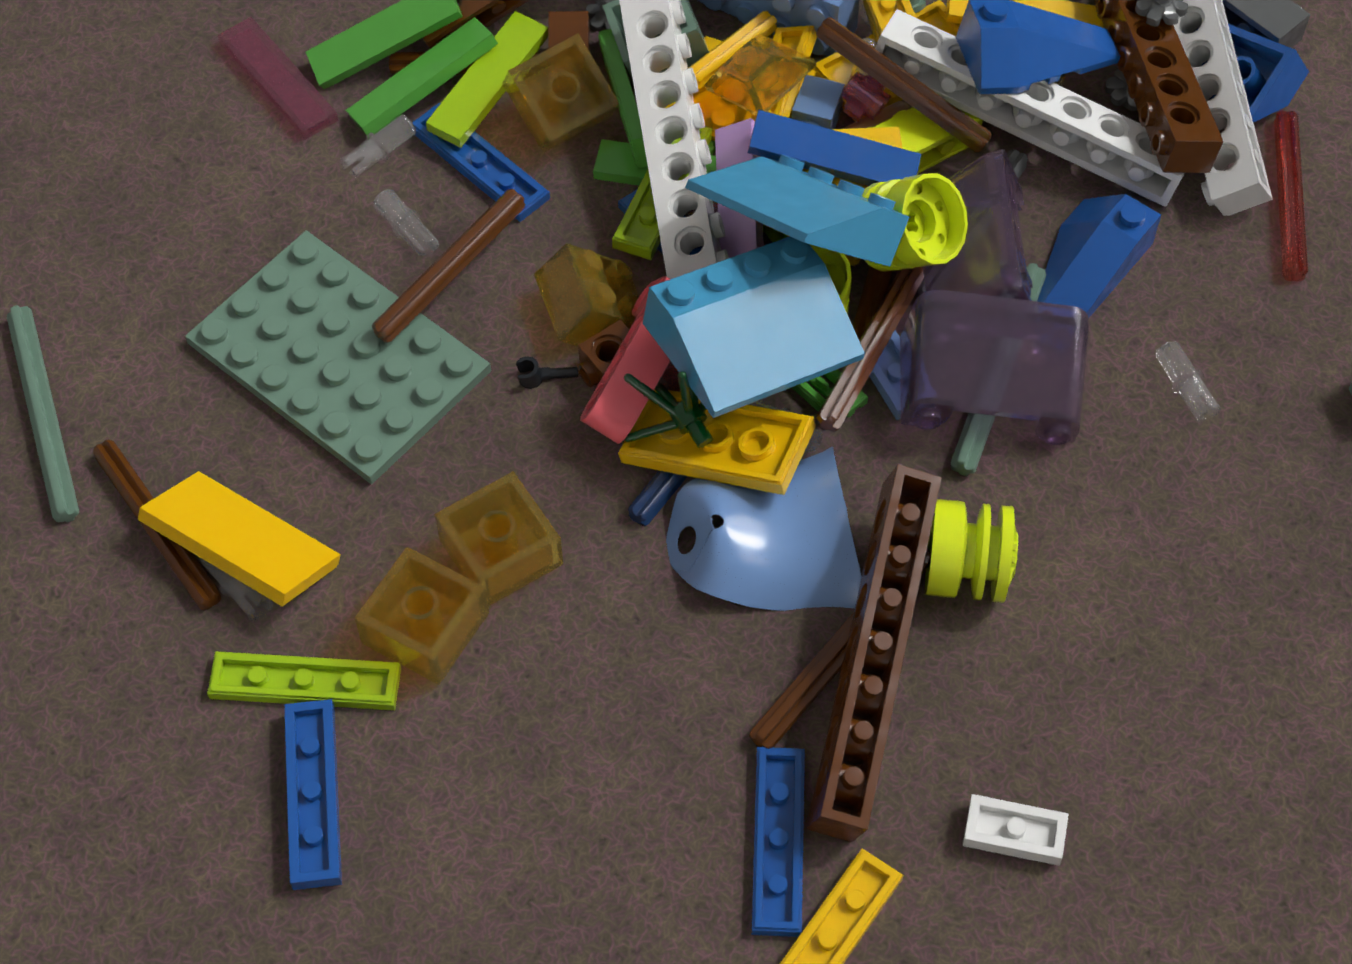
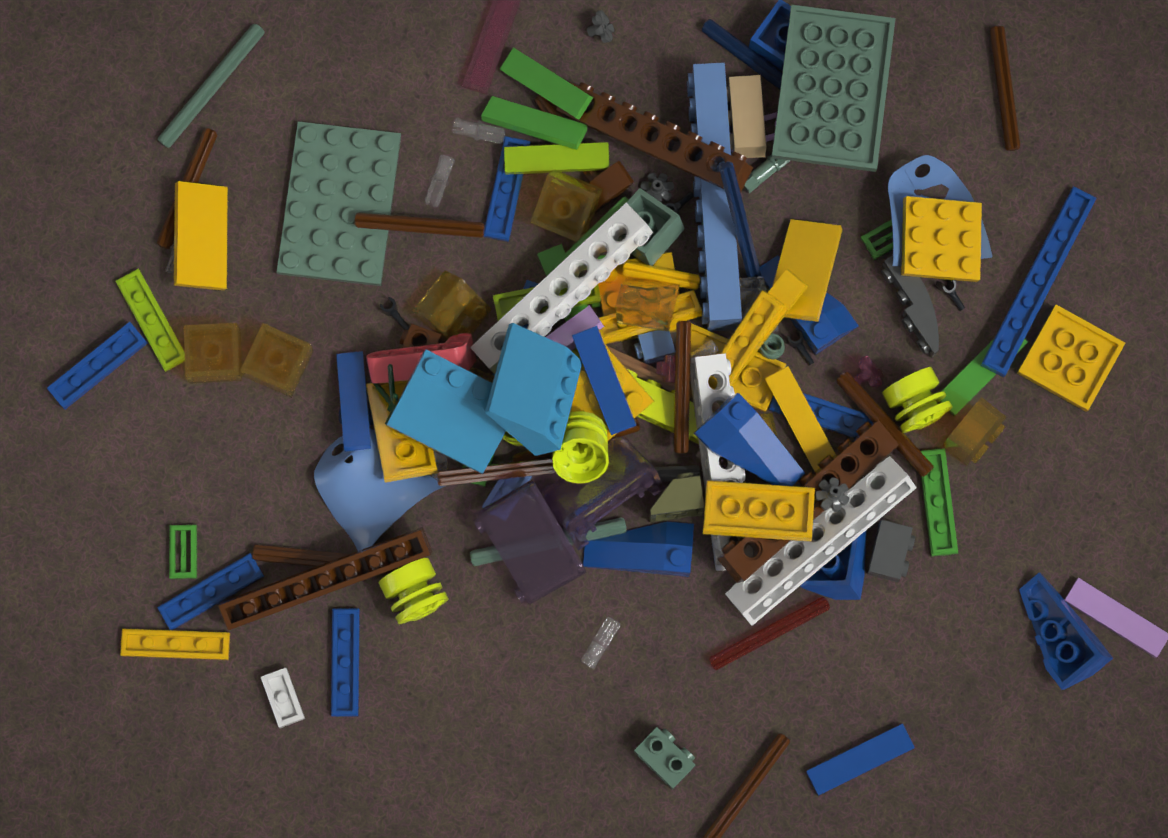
camera: 55 degrees right, 20 degrees up
(634, 477) = (353, 401): none -> blue tile
(677, 857) = (172, 555): none -> bright green tile
(1012, 716) = (345, 663): none -> blue tile
(1049, 175) = (679, 500): none -> olive slope
(1135, 80) = (759, 510): none -> yellow tile

